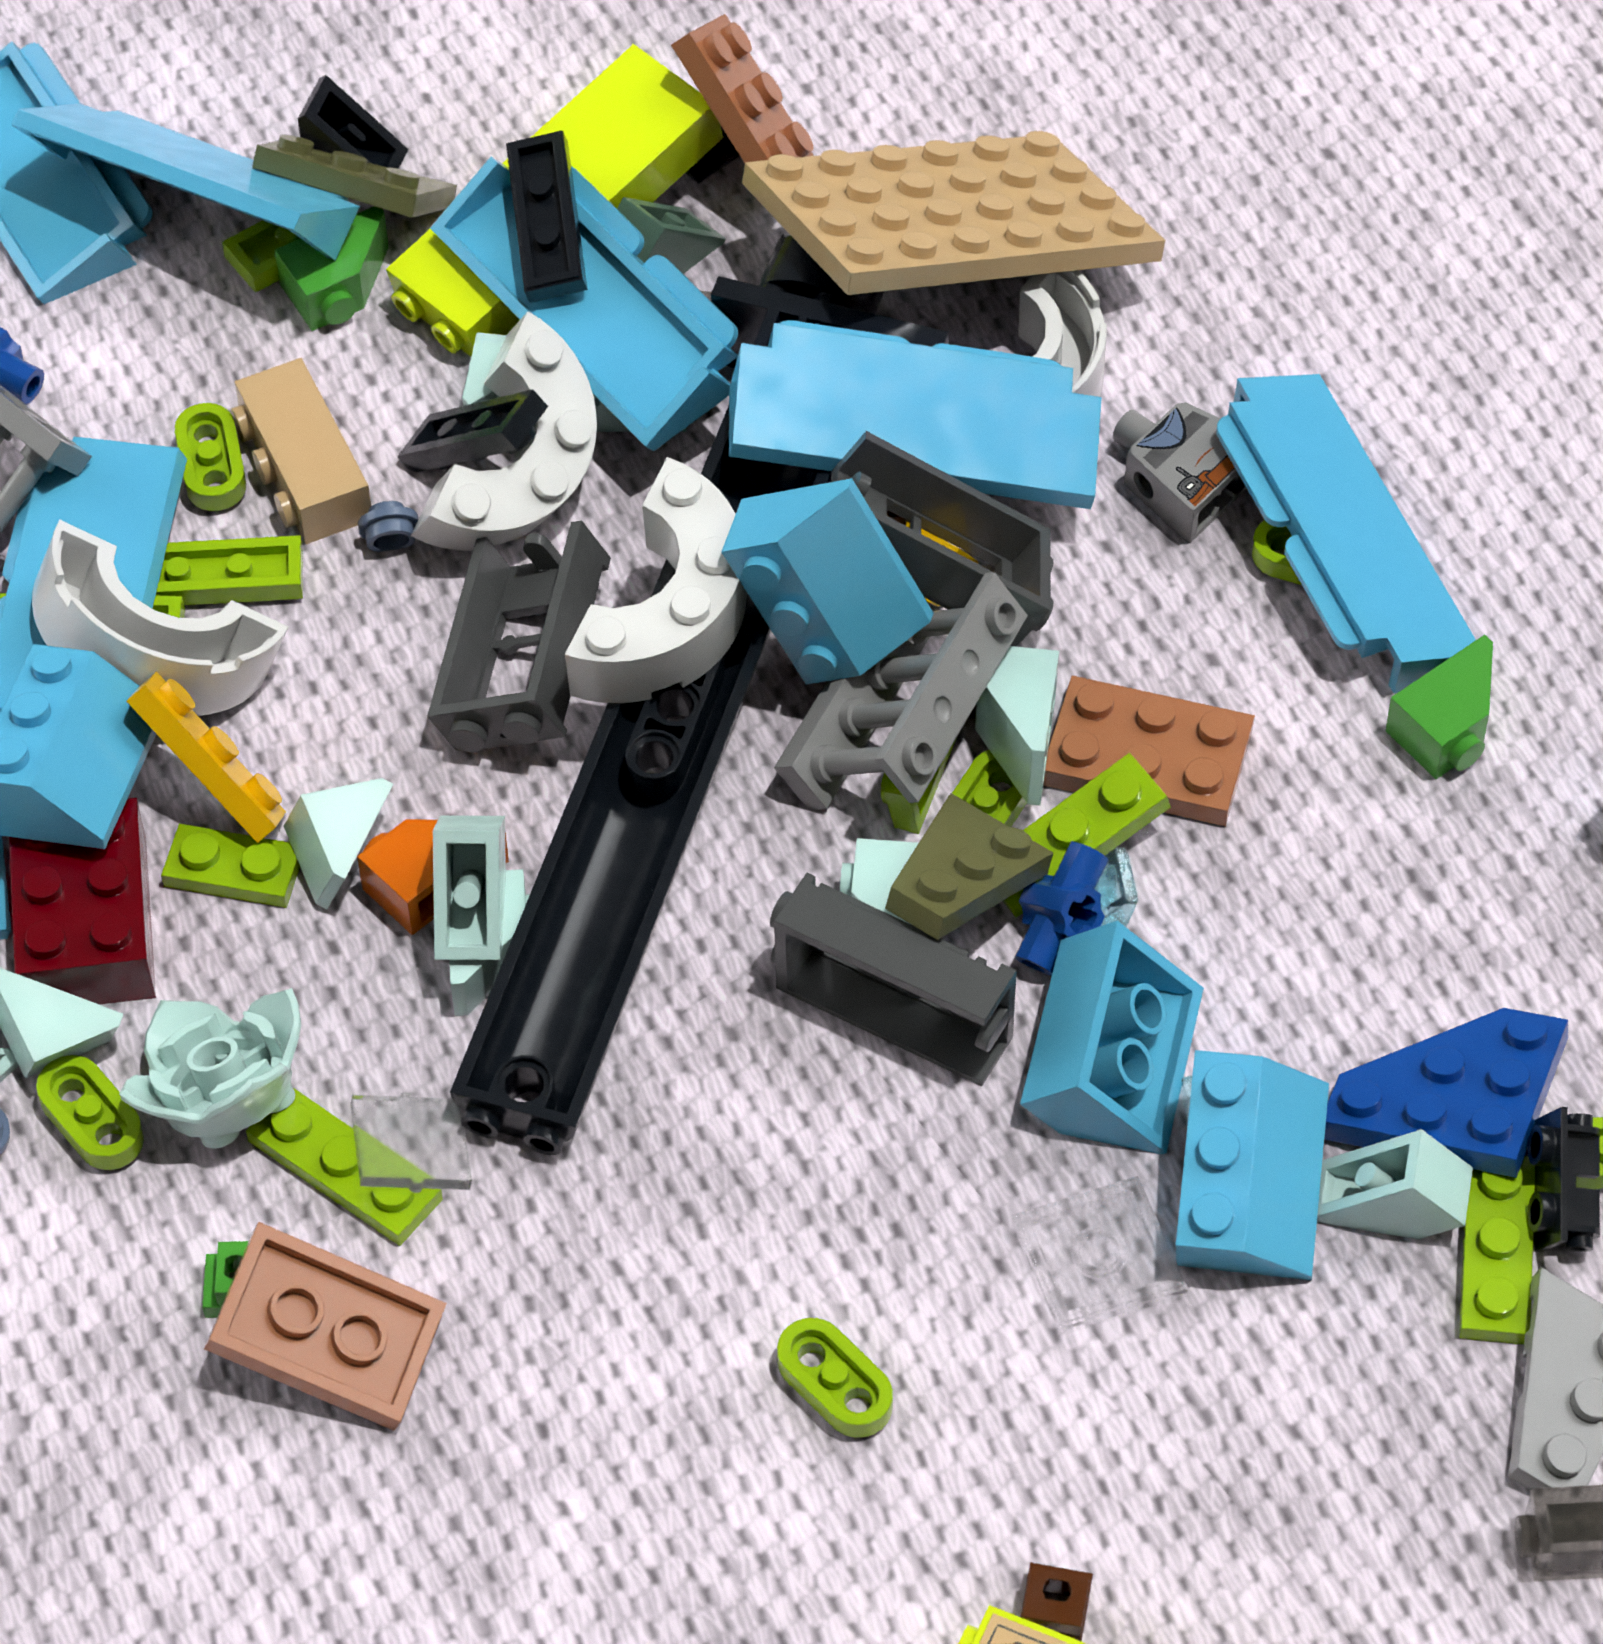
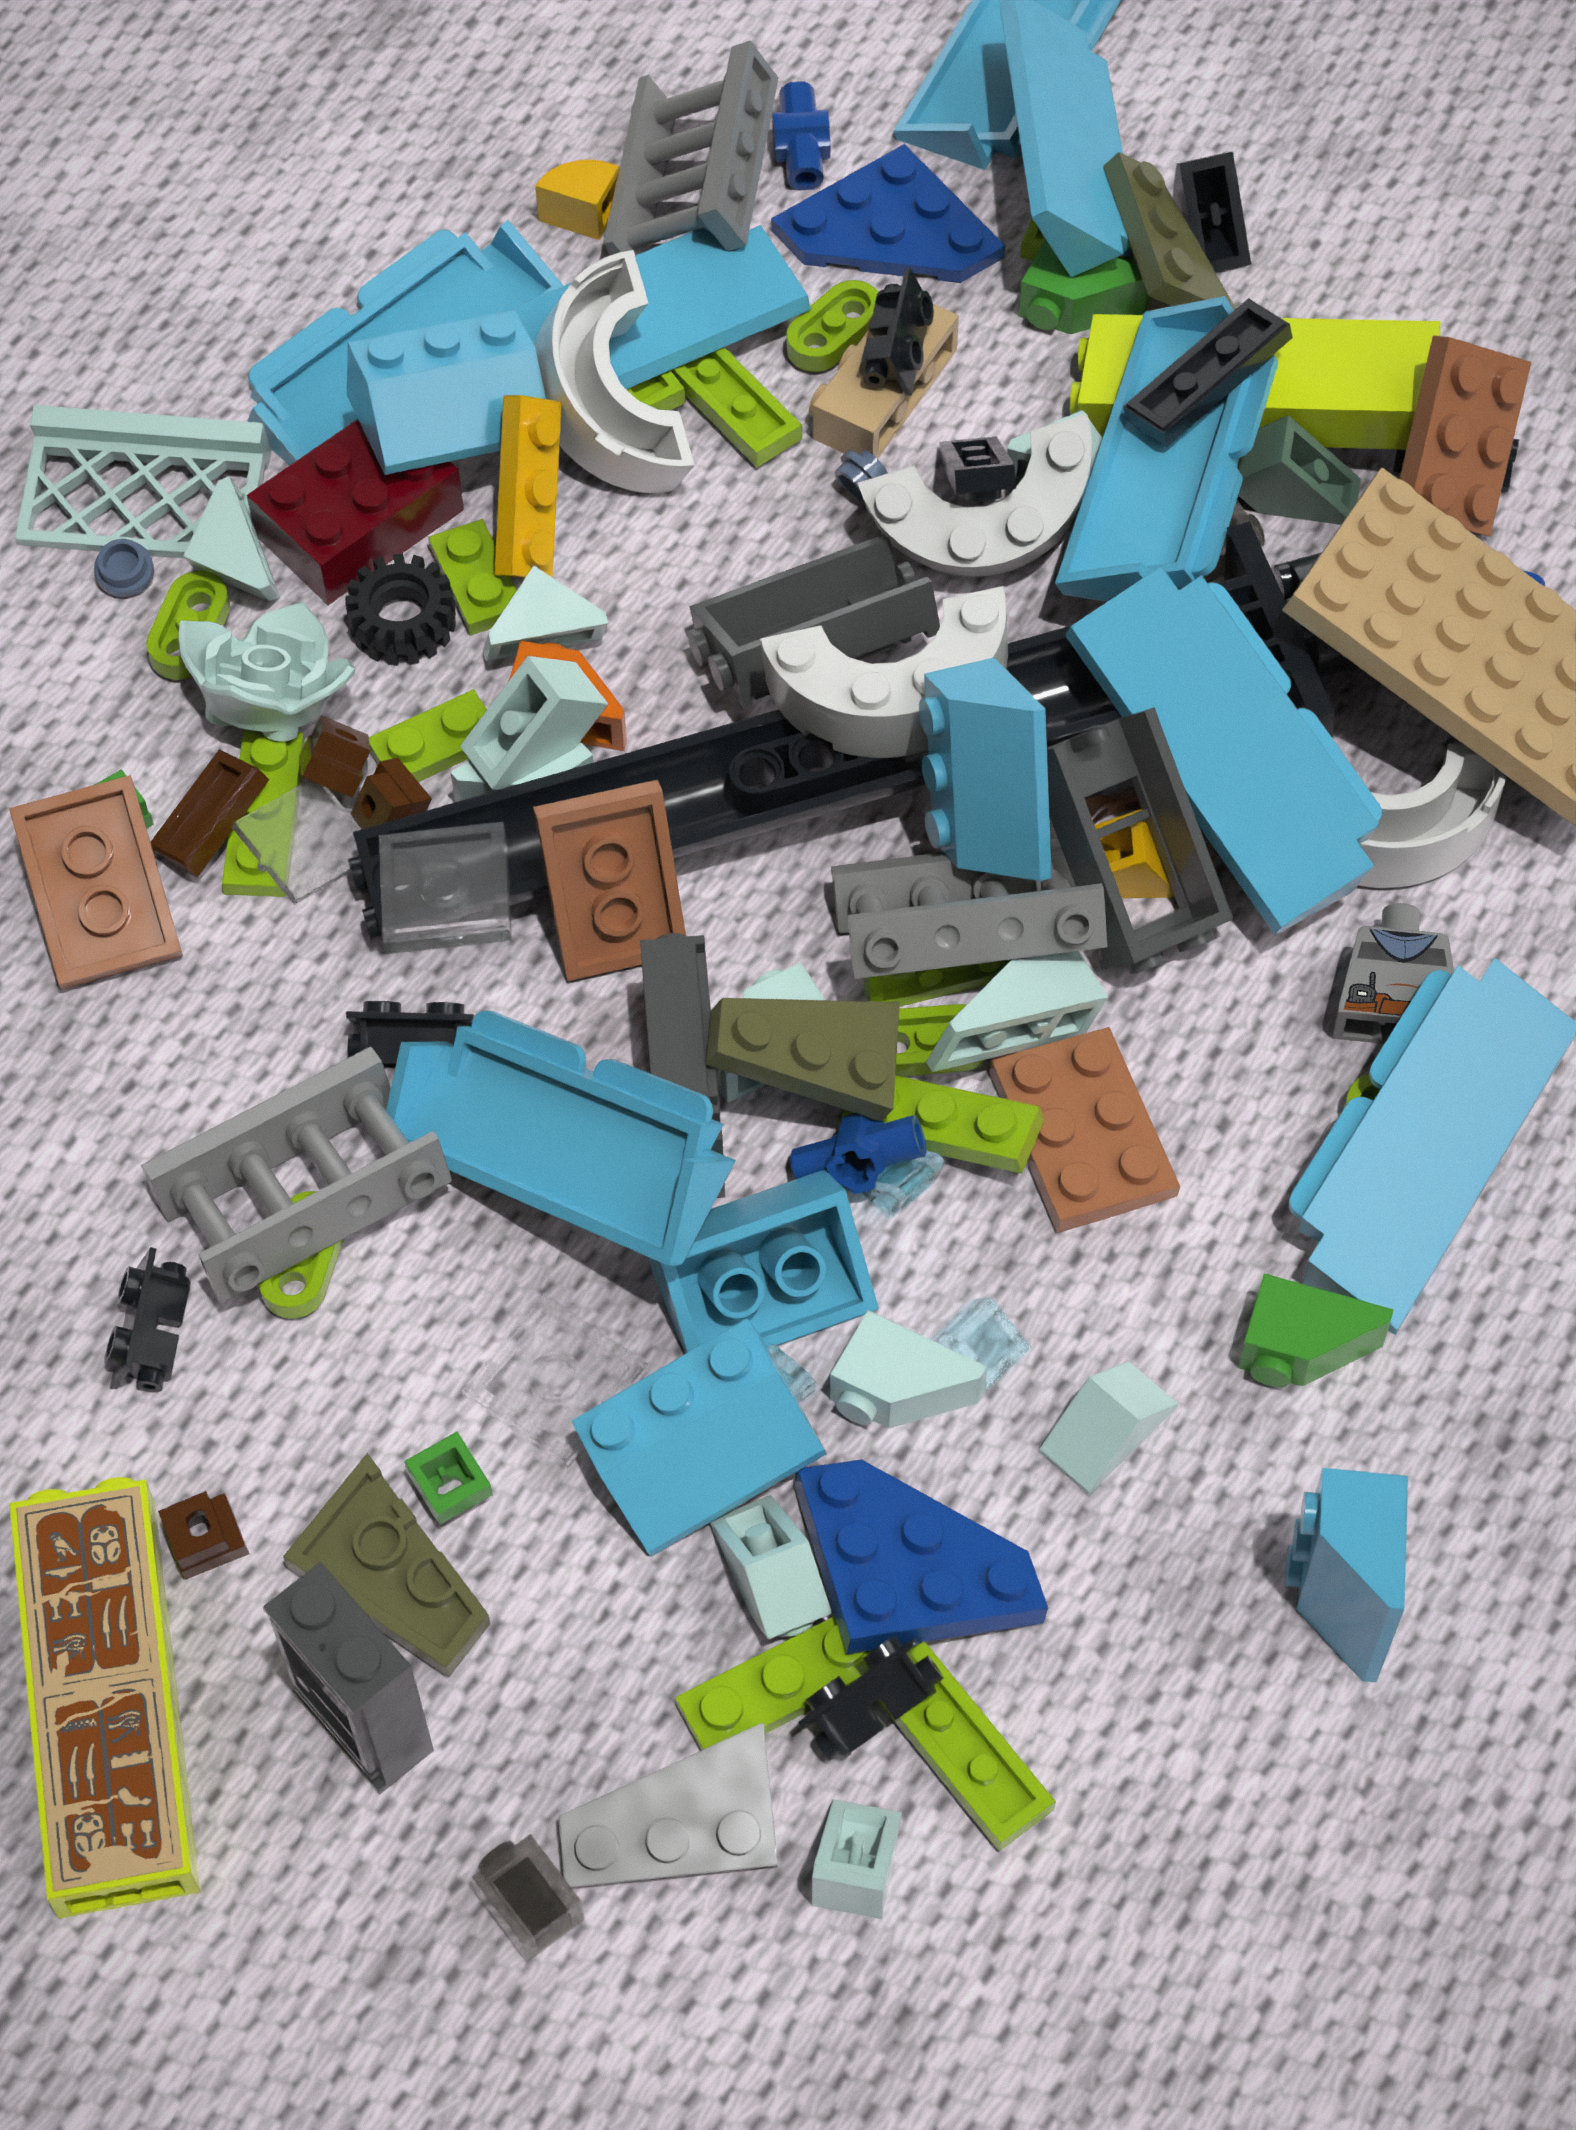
camera: 55 degrees right, 5 degrees up
(136, 356) = (889, 221): none -> blue plate
(218, 907) = (393, 583): none -> black tyre
(310, 418) = (903, 318): none -> black hinge
(317, 1194) = (208, 813): none -> reddish brown tile
(347, 1067) = (335, 756): none -> reddish brown piece
(380, 993) = (432, 738): none -> lime plate
(426, 1039) = (389, 795): none -> reddish brown piece
(576, 1048) = (445, 888): none -> clear tile
(677, 918) = (609, 876): none -> nougat plate
(693, 1151) = (385, 1027): none -> black hinge
(706, 1301) = (275, 1132): none -> light grey fence
(789, 1526) = (138, 1347): none -> black hinge
(883, 1106) = (575, 1142): none -> medium azure slope
(1144, 1364) = (442, 1464): none -> bright green piece
(1192, 1480) = (392, 1569): none -> olive wing
(1284, 1000) = (901, 1376): none -> light aqua slope
(1285, 933) = (985, 1336): none -> clear light blue slope
(1321, 1482) = (338, 1646): none -> dark grey door
(1431, 892) = (1106, 1424): none -> light aqua slope

